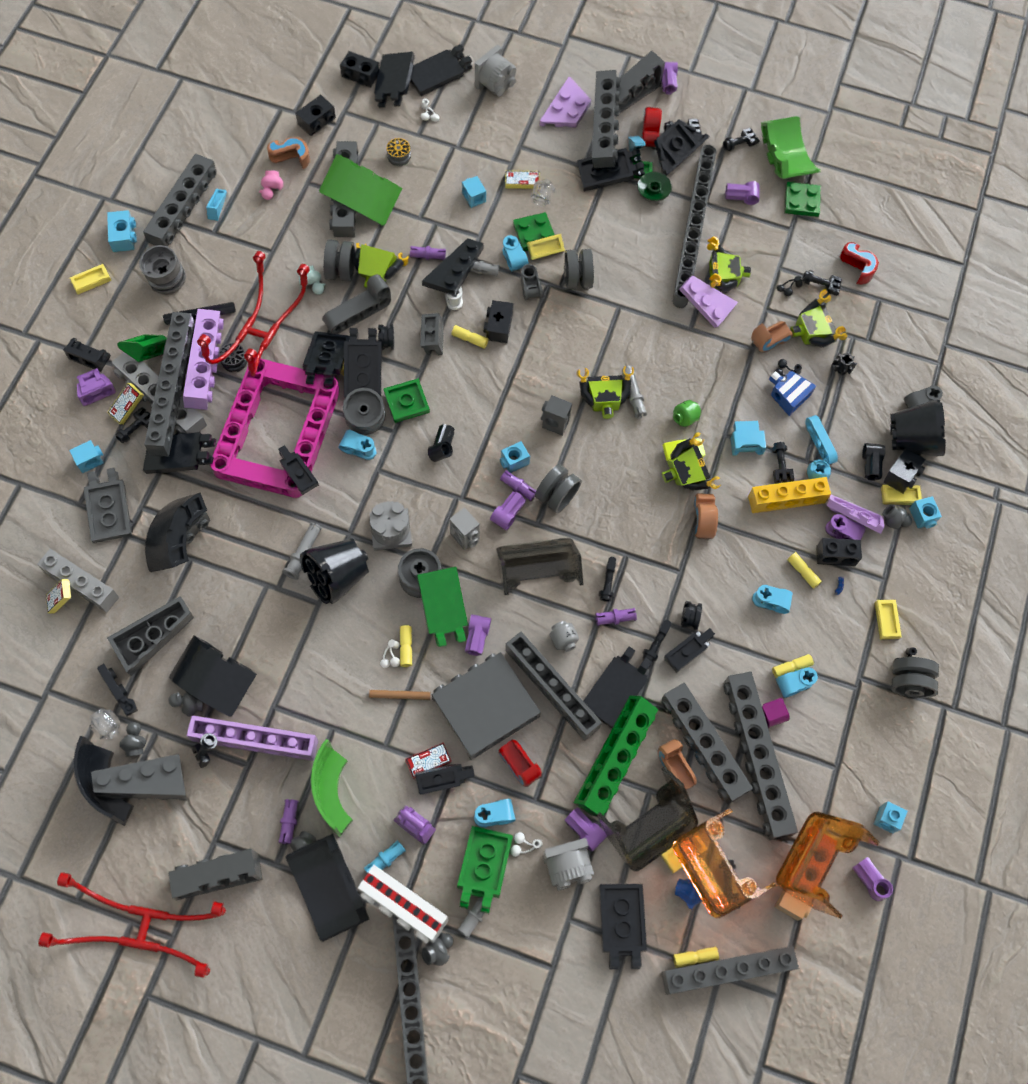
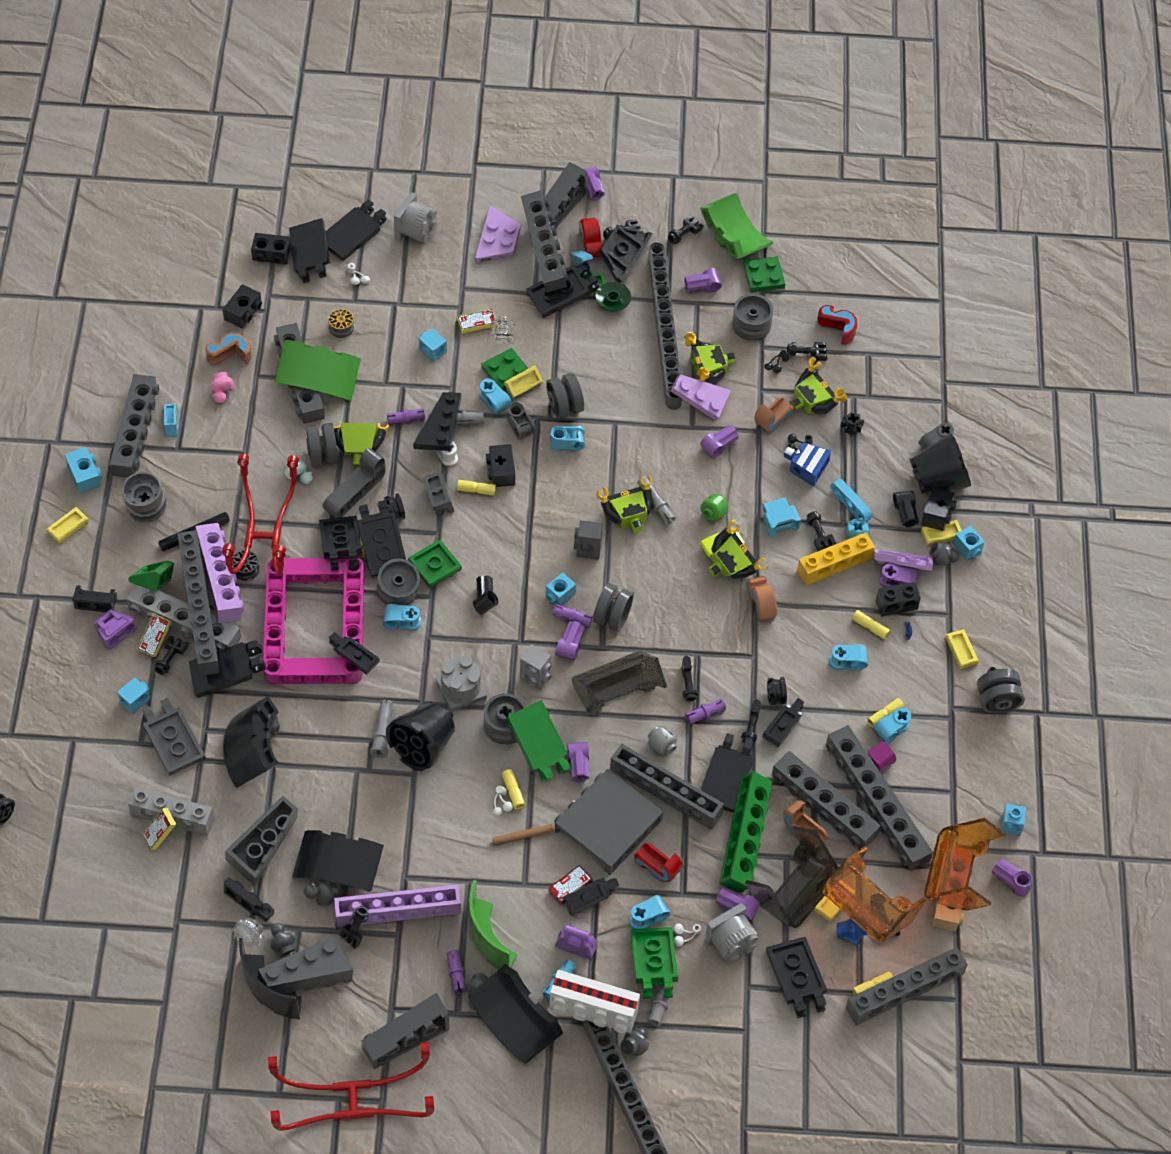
camera: 15 degrees left, 10 degrees down
(569, 310) = (566, 438): none -> medium azure piece
(707, 350) = (716, 443): none -> medium lavender piece
(779, 236) = (752, 316): none -> dark grey wheel

